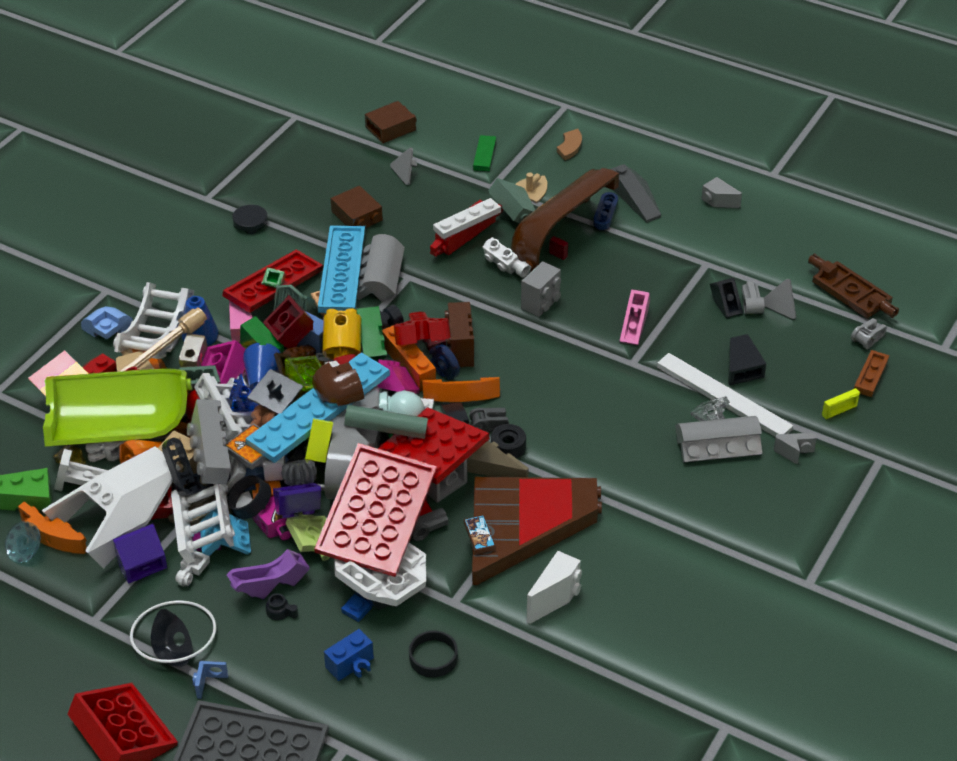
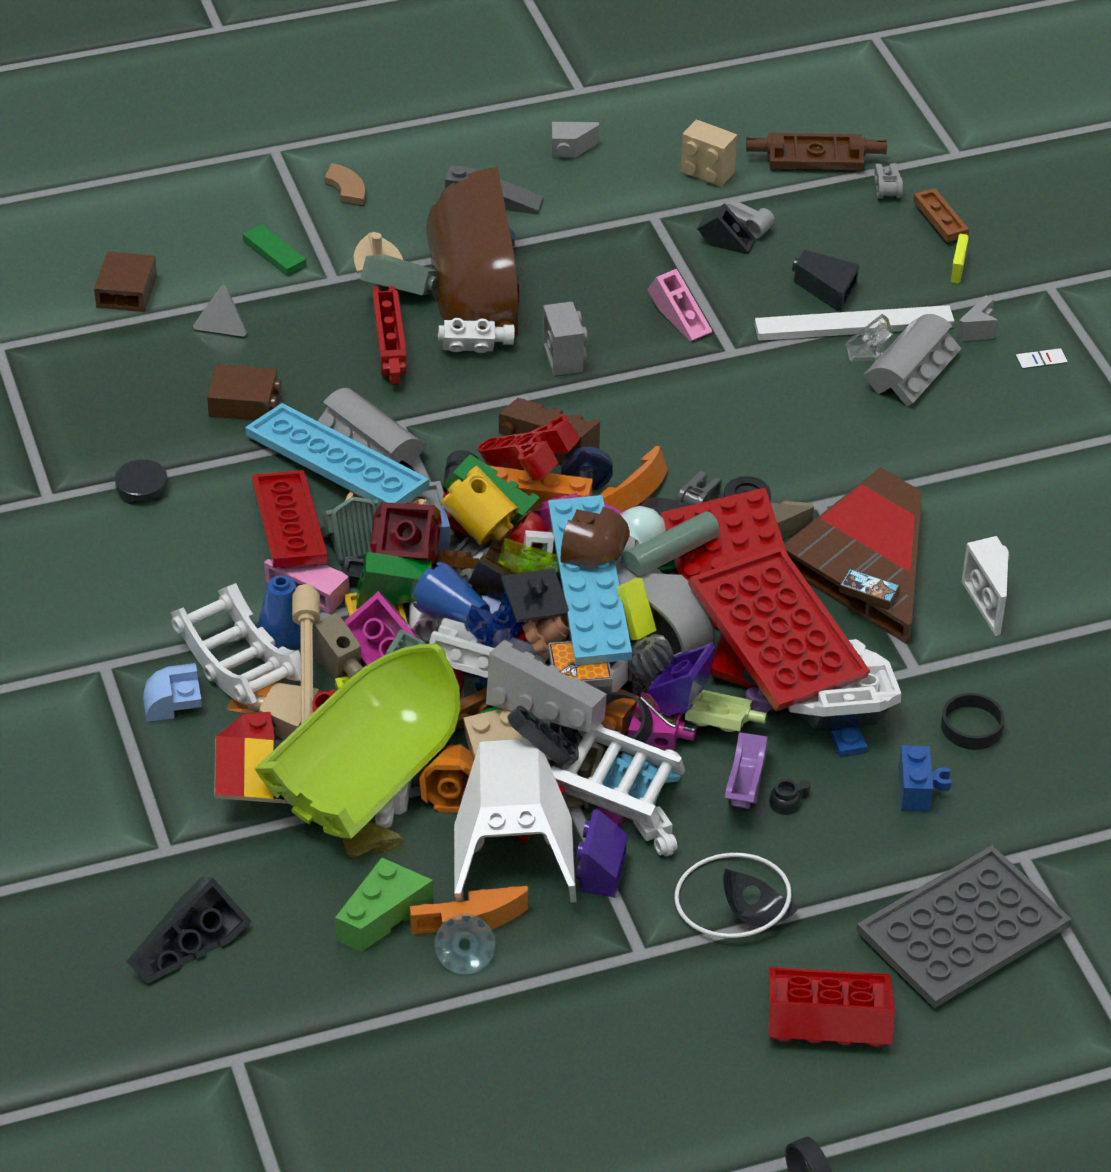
camera: 50 degrees left, 0 degrees up
(74, 472) = (405, 842): white bracket -> none
(204, 671) = (826, 905): medium blue bracket -> none
(273, 277) = (296, 512): green slope -> none
(466, 218) = (395, 317): white plate -> none
(777, 247) = (708, 153): none -> tan brick
(782, 299) = (779, 198): light grey piece -> none
(807, 495) = (1041, 358): none -> white sticker

